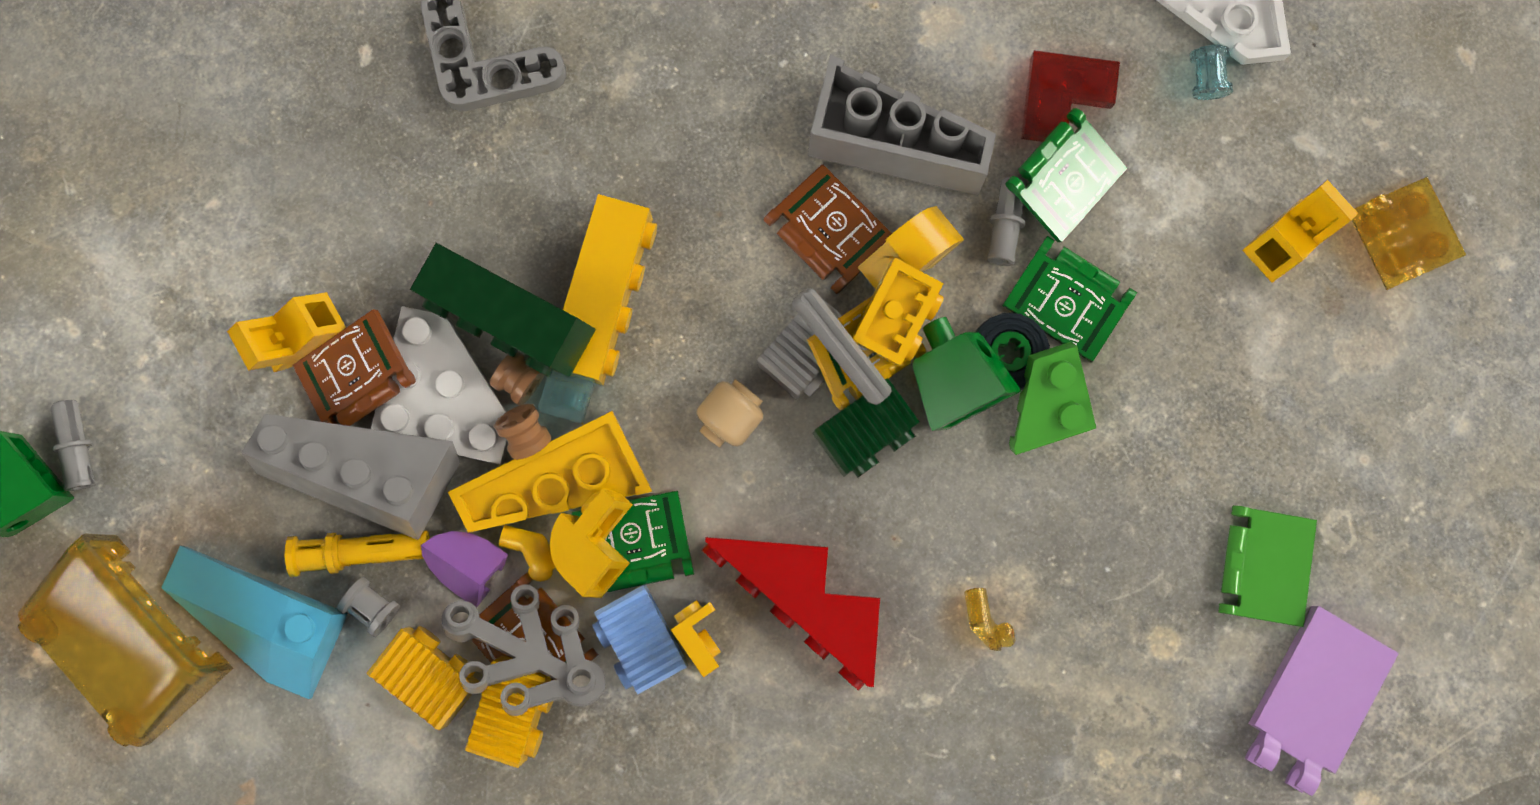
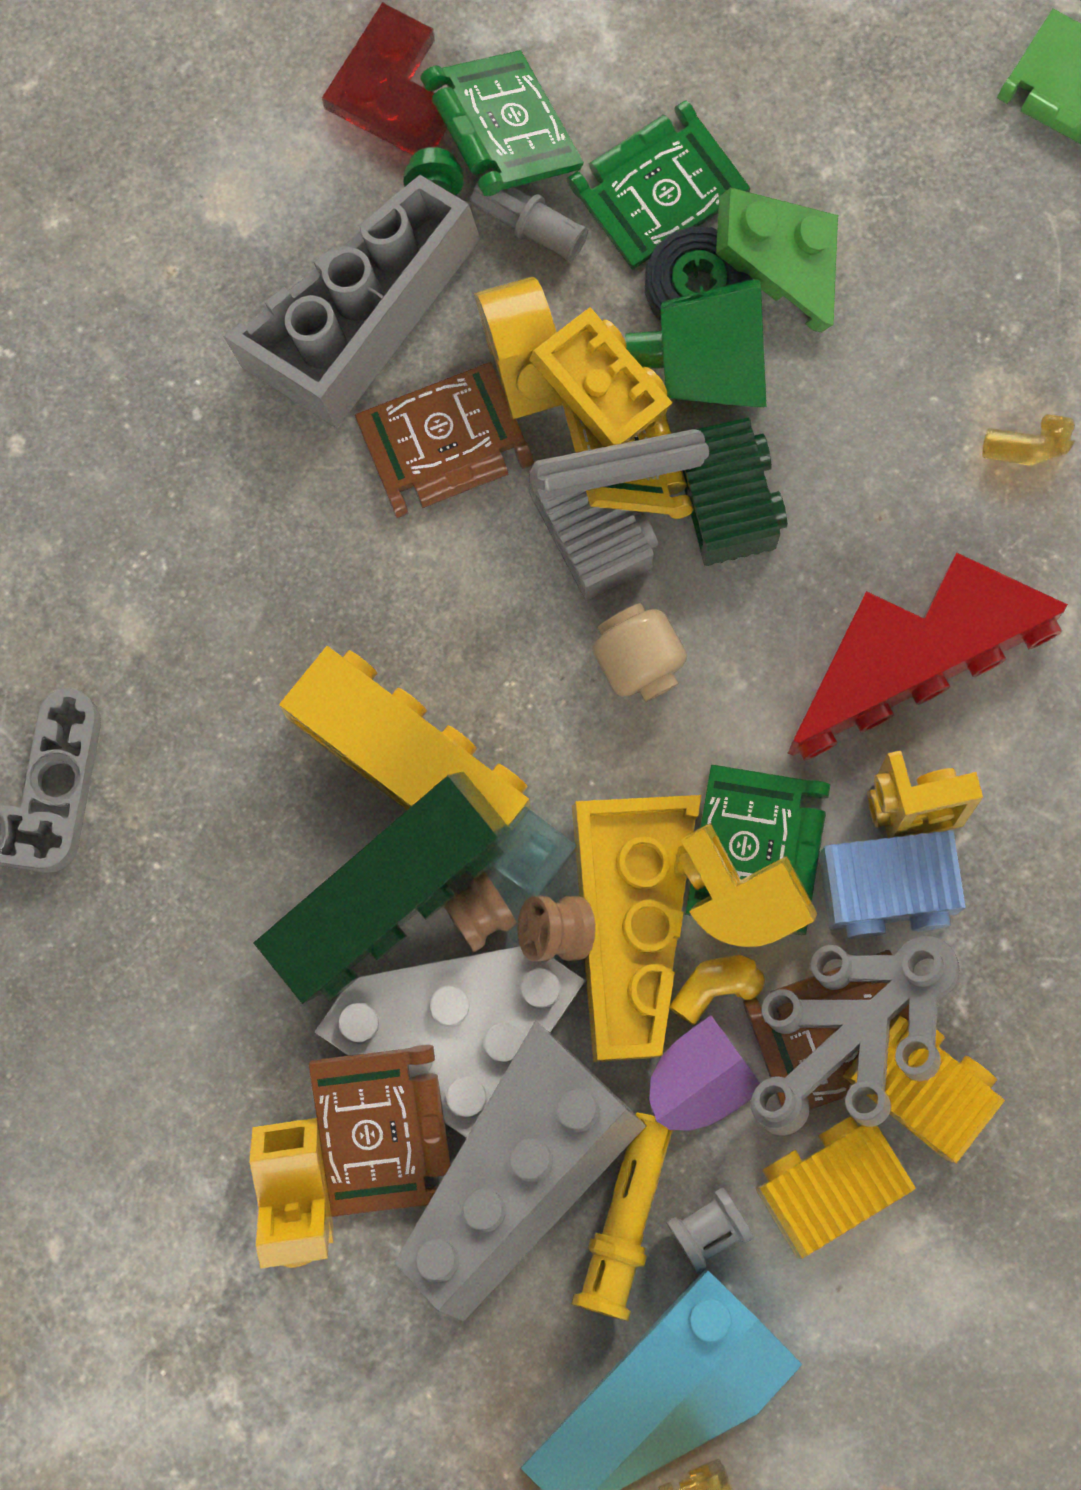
camera: 60 degrees left, 5 degrees down
(1009, 146) = (438, 167): none -> green plate

